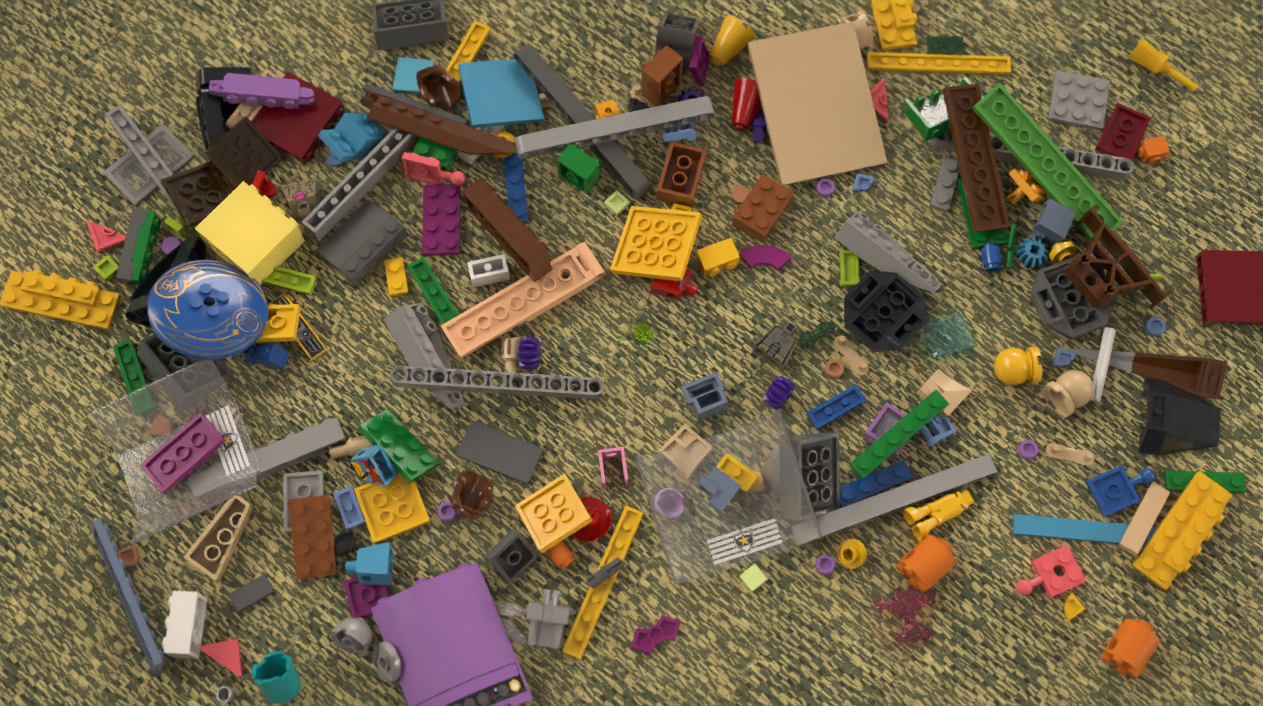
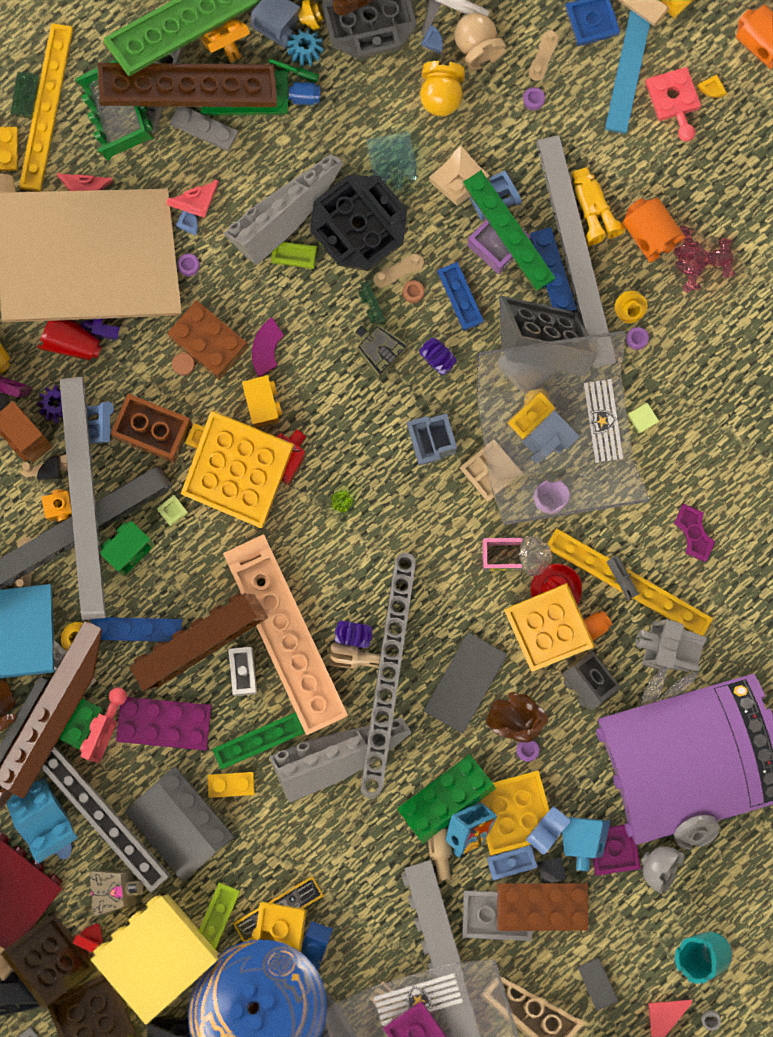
camera: 80 degrees left, 10 degrees up
(376, 531) = (548, 830): none -> medium blue panel
(615, 488) = (534, 555): none -> clear piece
(881, 185) = (195, 200): none -> coral tile

